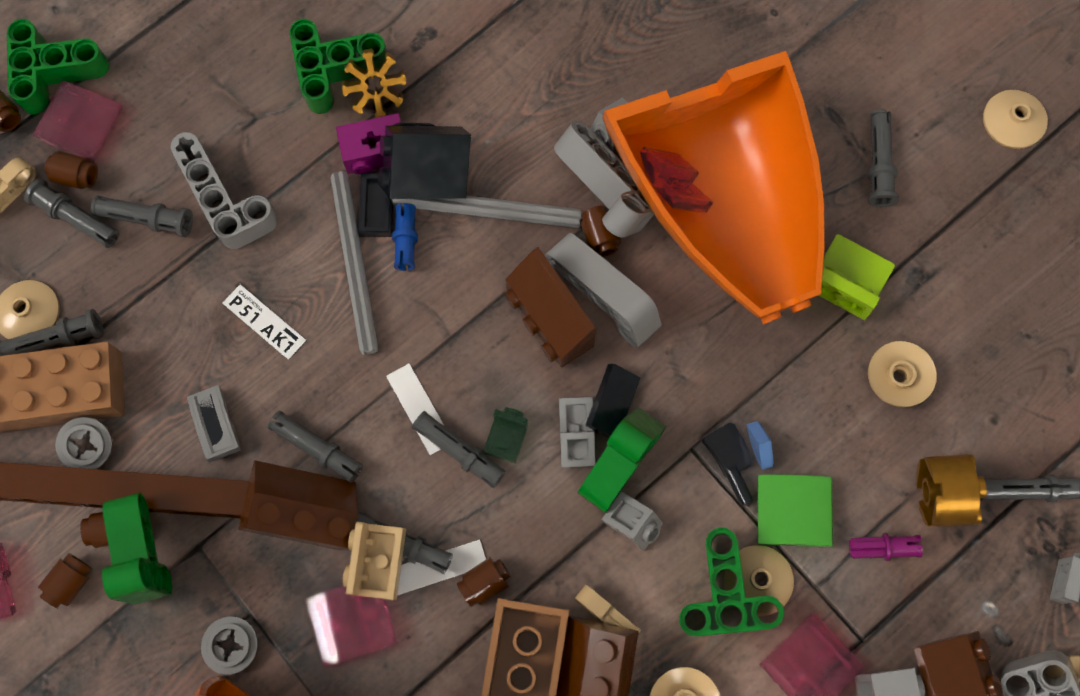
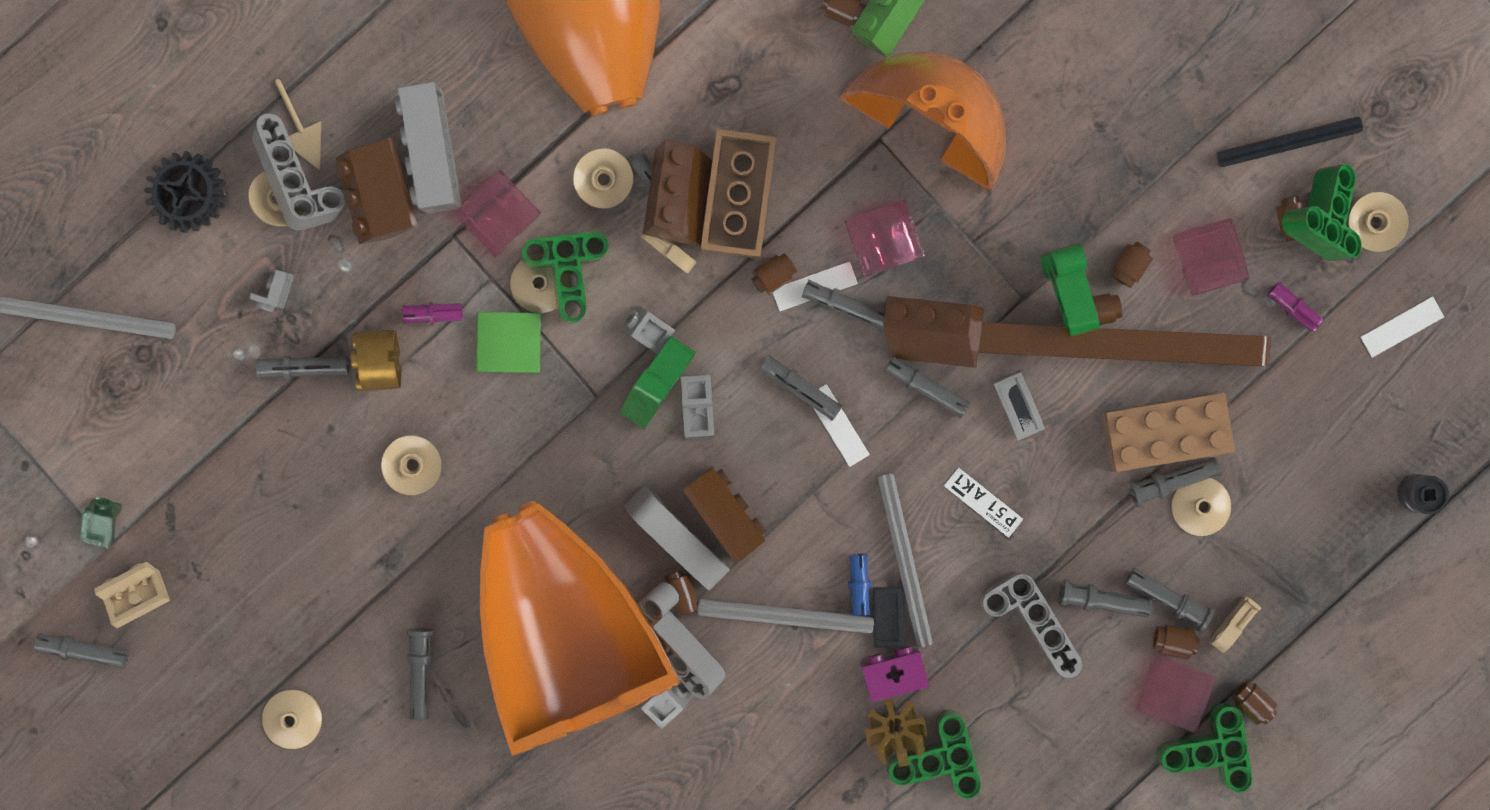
camera: 175 degrees right, 15 degrees up
(69, 450) = (1143, 378): light grey gear -> none
(216, 656) = (998, 208): light grey gear -> none
(374, 561) = (865, 286): tan bracket -> none
(424, 161) = (843, 651): black brick -> none
(506, 435) = (759, 401): clear green bracket -> none
(612, 400) = (666, 434): black tile -> none
(674, 180) = (615, 638): clear pink slope -> none
(732, 456) = (561, 389): black piece -> none
(760, 444) = (536, 399): medium blue tile -> none
(853, 276) = (451, 557): lime bracket -> none

